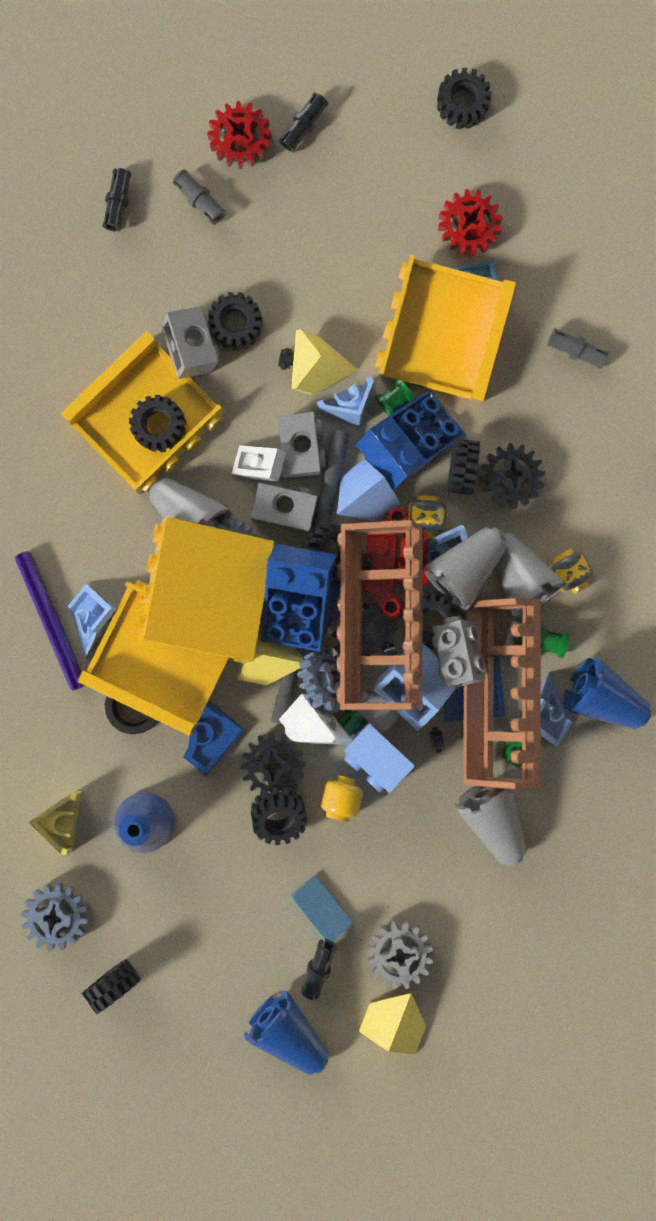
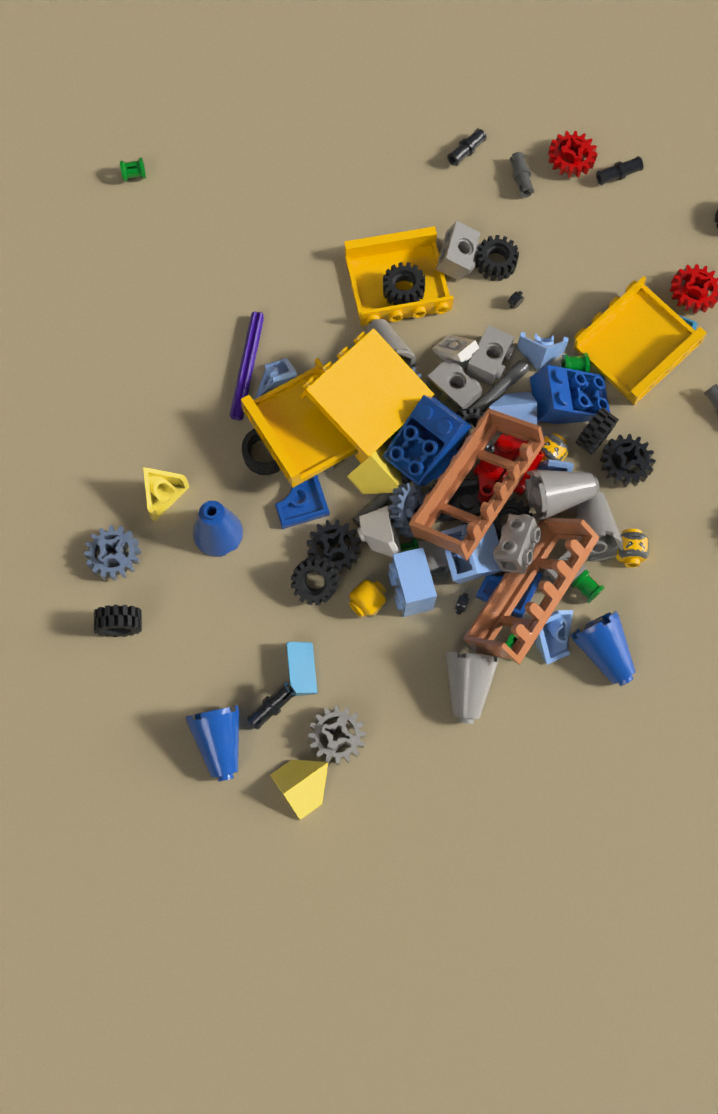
camera: 30 degrees right, 15 degrees down
(317, 364) = (534, 314): light yellow slope -> none

